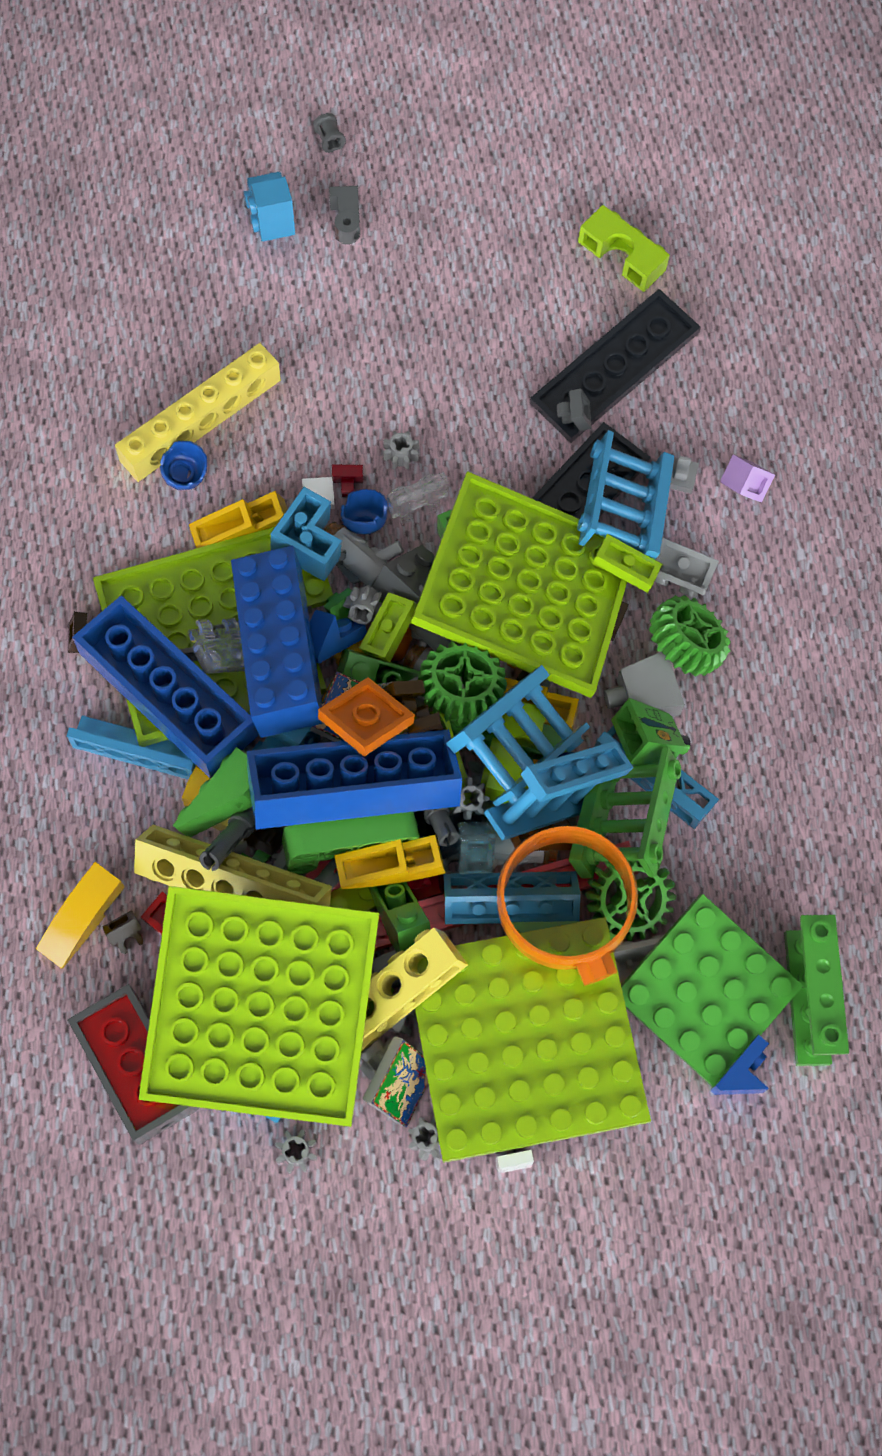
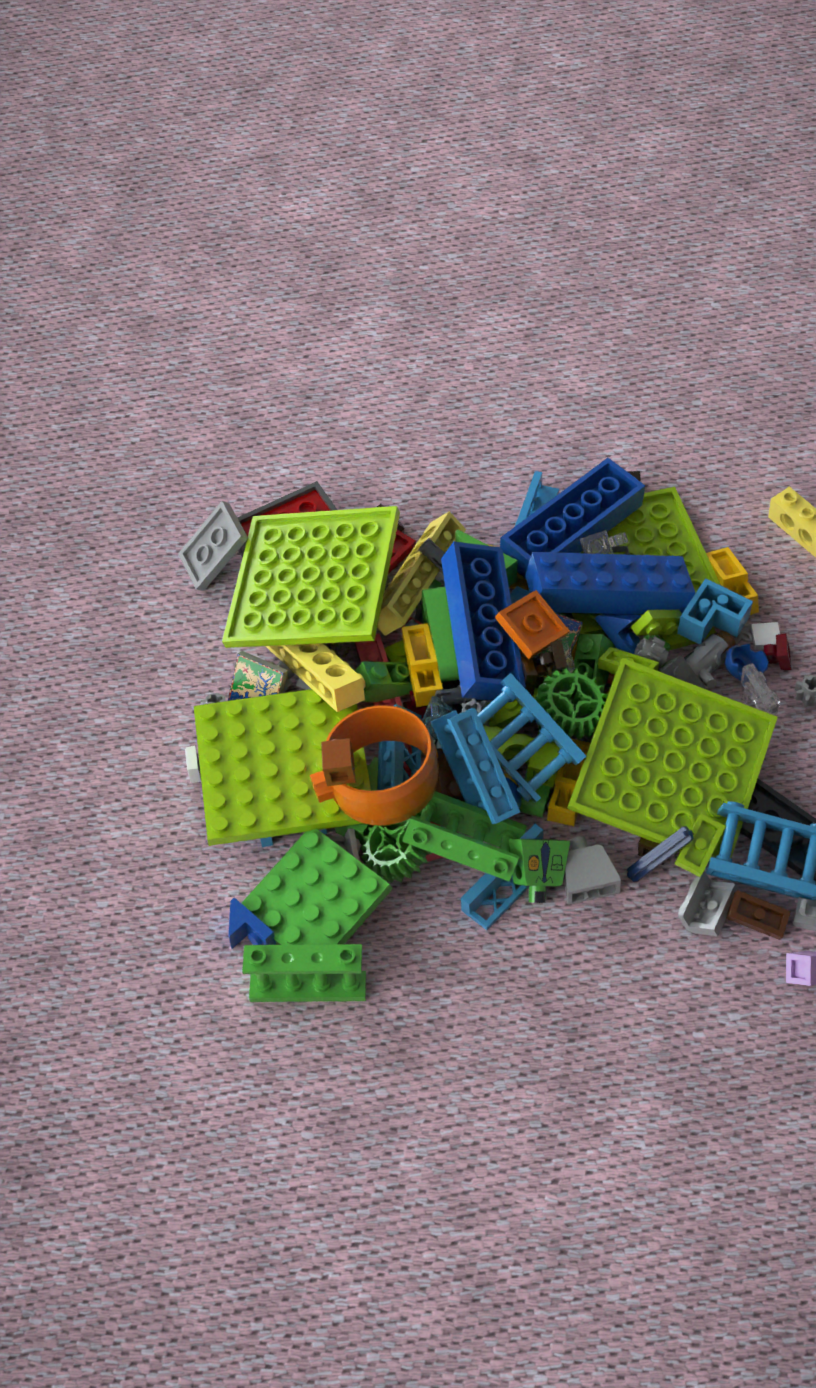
camera: 100 degrees right, 15 degrees down
(80, 914) = (404, 494): yellow slope -> none
(169, 1160) = (212, 545): none -> light grey plate
(179, 460) = (779, 539): blue hair -> none
(286, 1149) = (213, 627): light grey gear -> none
(325, 593) = (657, 622): none -> lime plate
(600, 933) = (338, 762): none -> dark orange brick
(635, 606) = (660, 854): none -> axle
(689, 635) = (634, 888): bright green gear -> none
(691, 520) = (758, 914): none -> reddish brown plate

